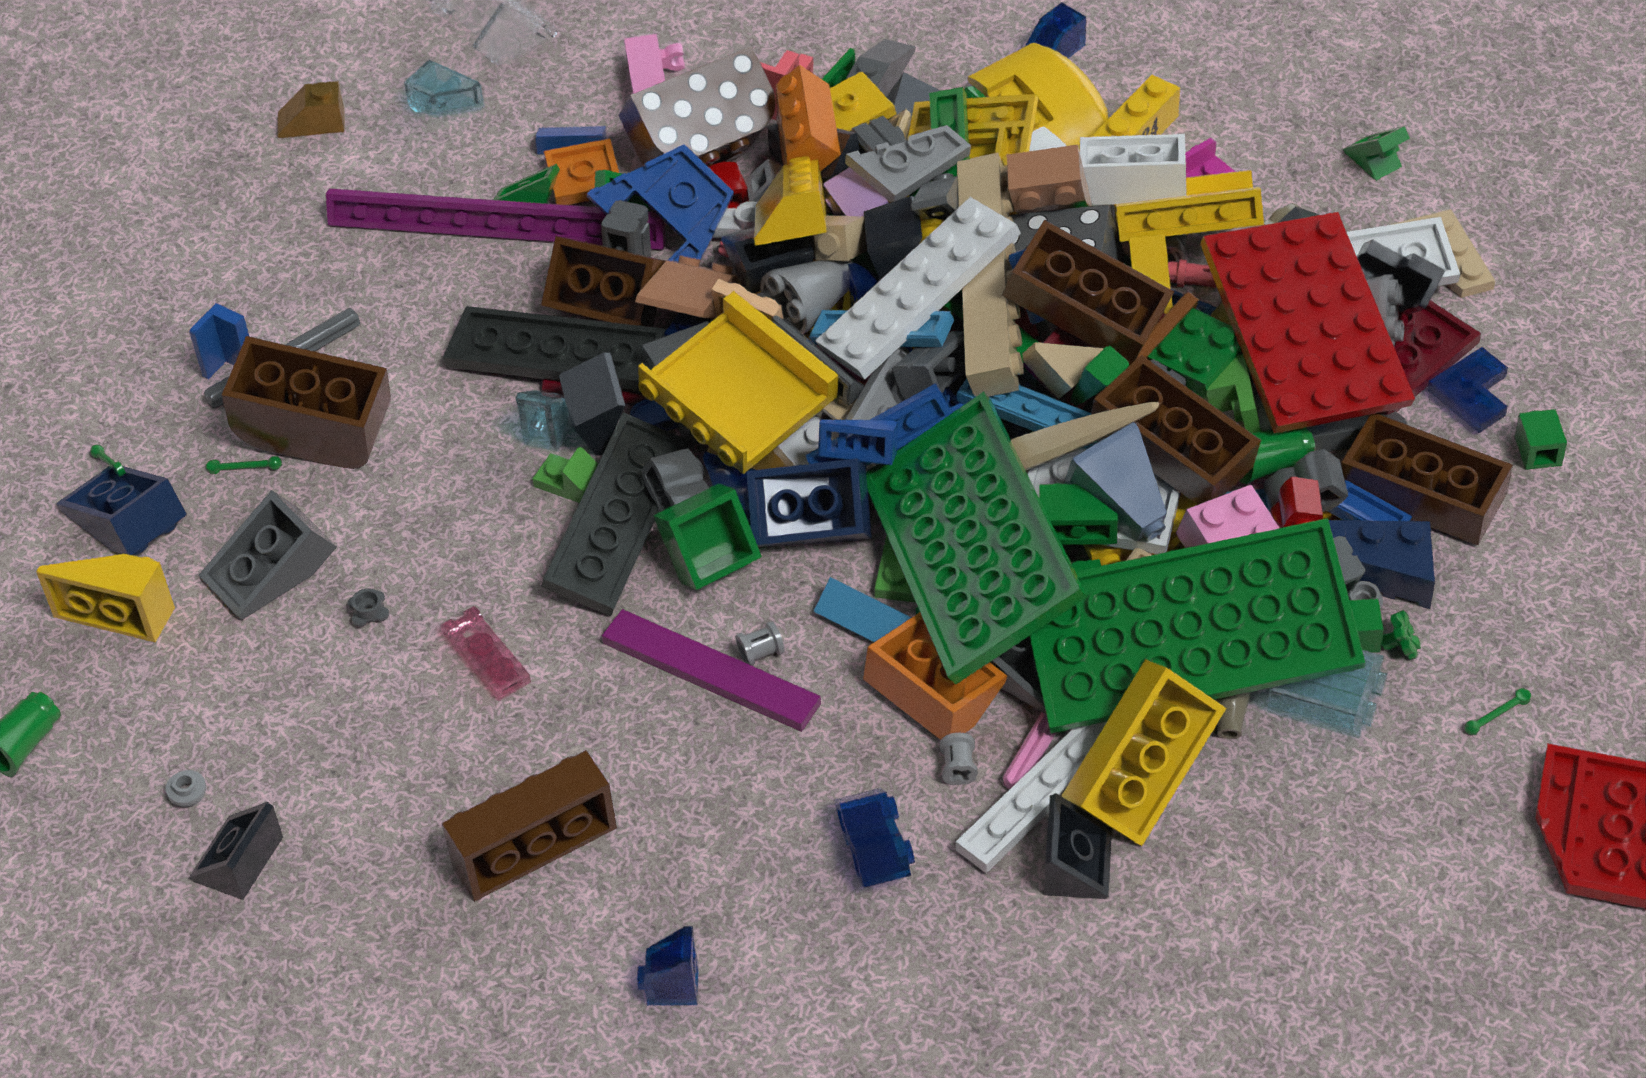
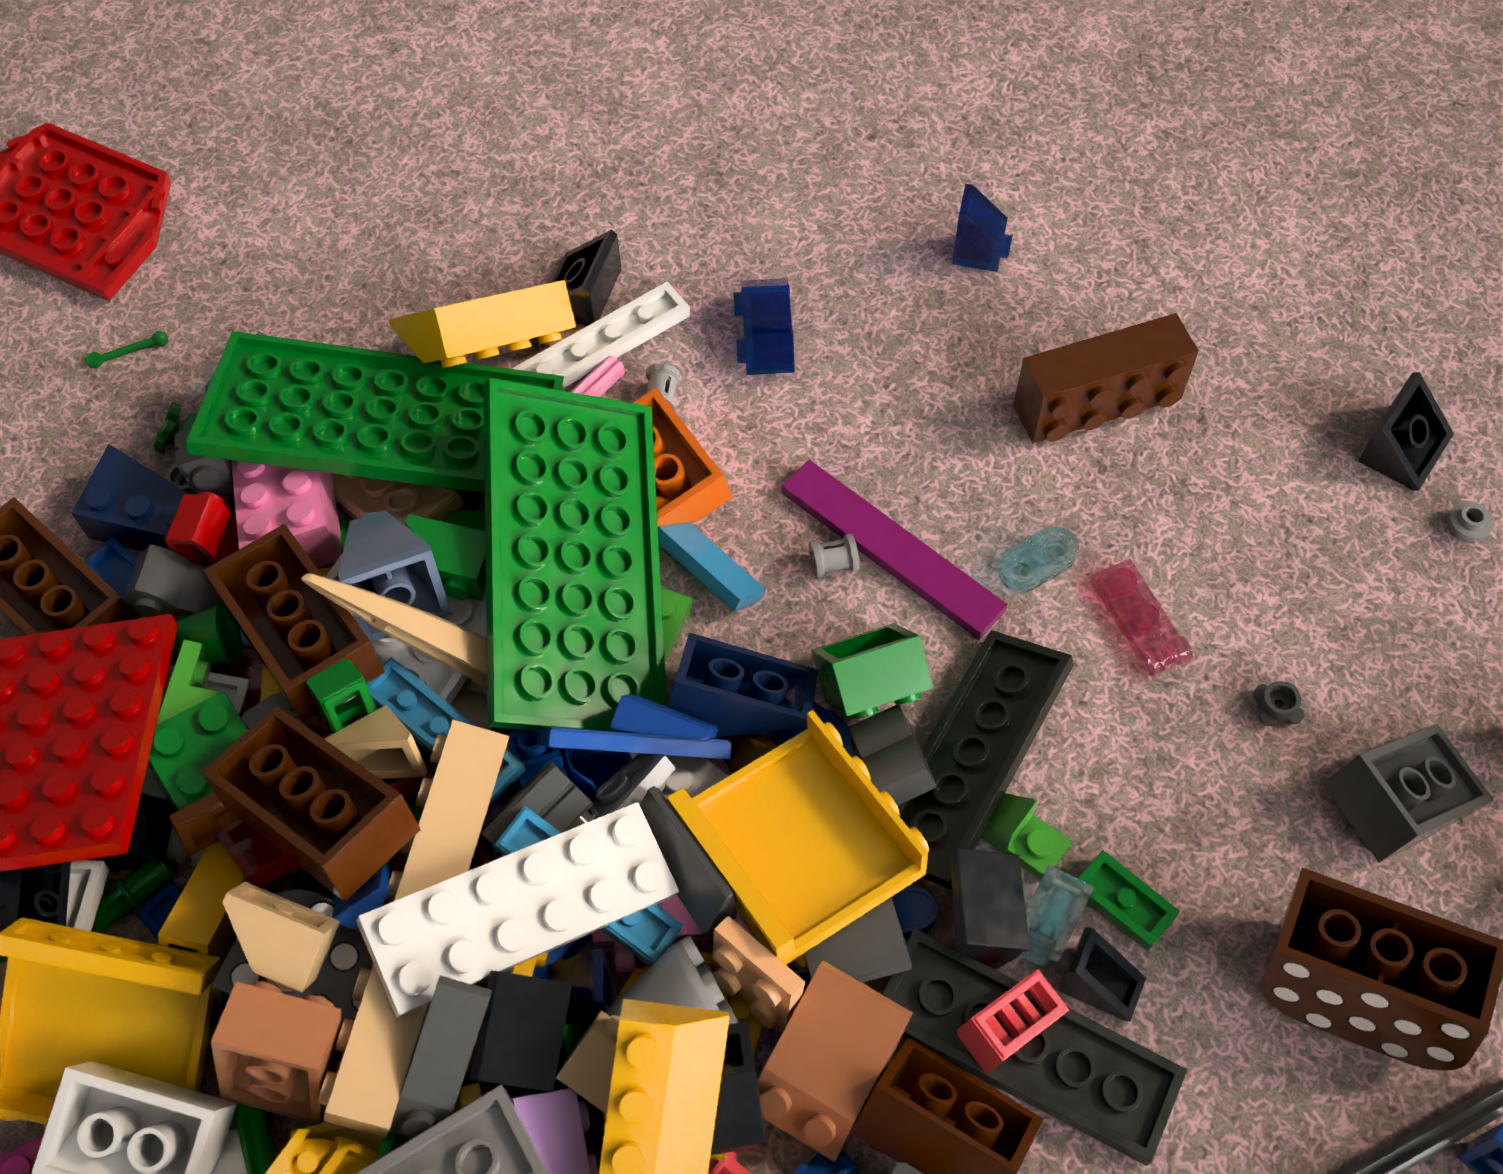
camera: 170 degrees left, 10 degrees up
(490, 449) = (1127, 901): none -> green plate
(499, 399) = (1102, 977): none -> black slope
(573, 320) = (988, 1039): none -> coral slope
(576, 678) = (1035, 560): none -> clear light blue plate
(1074, 214) = (280, 936): none -> tan slope

